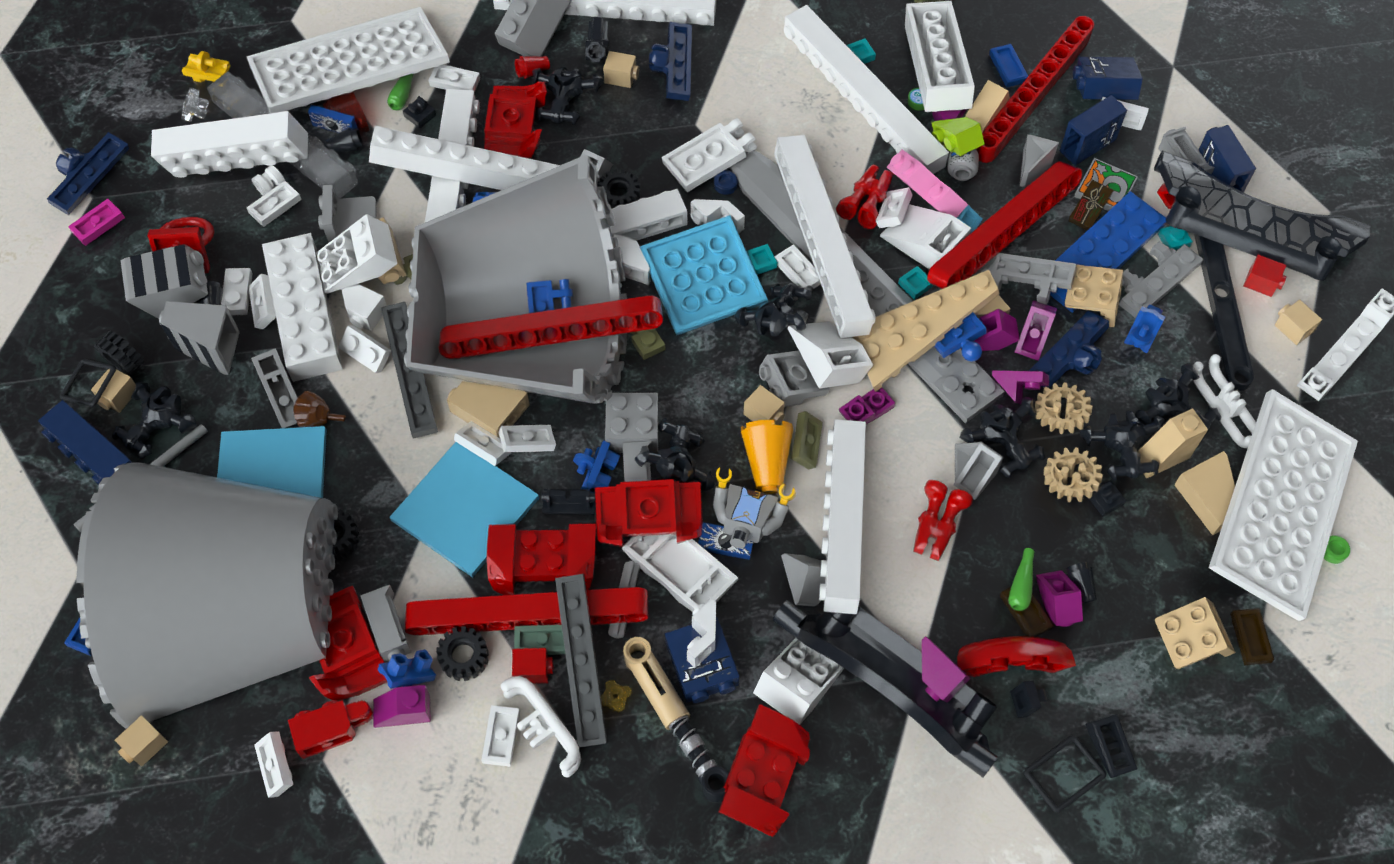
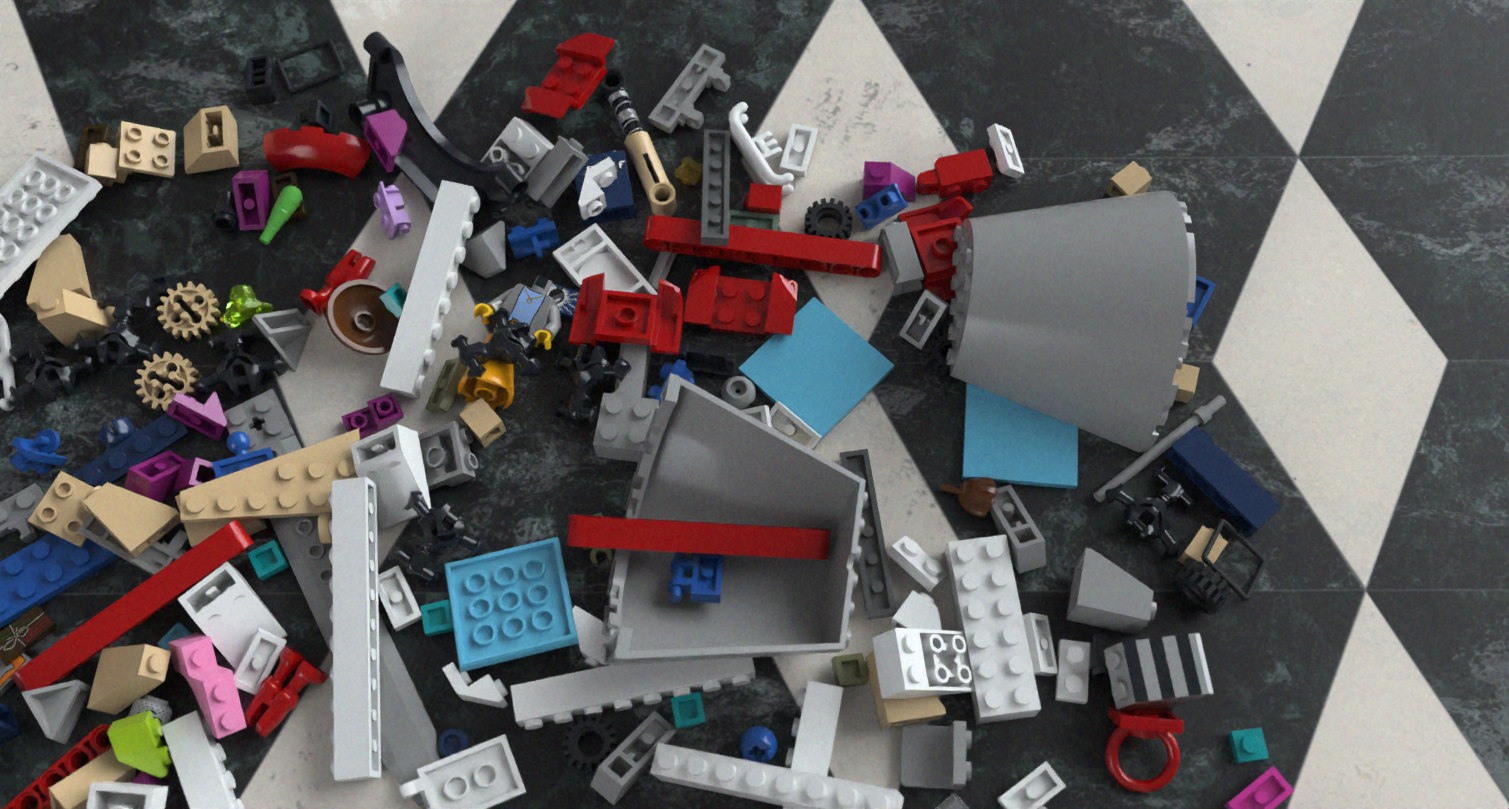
camera: 170 degrees left, 5 degrees up
(99, 258) = (1248, 745): none -> teal plate
(360, 563) = (925, 319): none -> light grey slope
(539, 482) = (741, 399): none -> light grey plate
(622, 817) = (677, 103): none -> light grey hinge
(751, 600) = (533, 239): none -> blue hips
(753, 458) = (508, 344): none -> black piece
(753, 655) = (557, 171): none -> light grey window
(873, 299) = (323, 528): none -> tan tile
(875, 503) = (394, 299): none -> teal plate
(885, 481) = (360, 303): none -> reddish brown dish
(921, 616) = (392, 220): none -> lavender hinge
(989, 181) = (126, 676): none -> tan slope
(1024, 488) = (243, 306): none -> clear neon green animal
(1036, 277) = (131, 517): none -> tan slope
(1128, 651) = (211, 140): none -> tan slope
(1228, 606) = (102, 163): none -> tan brick

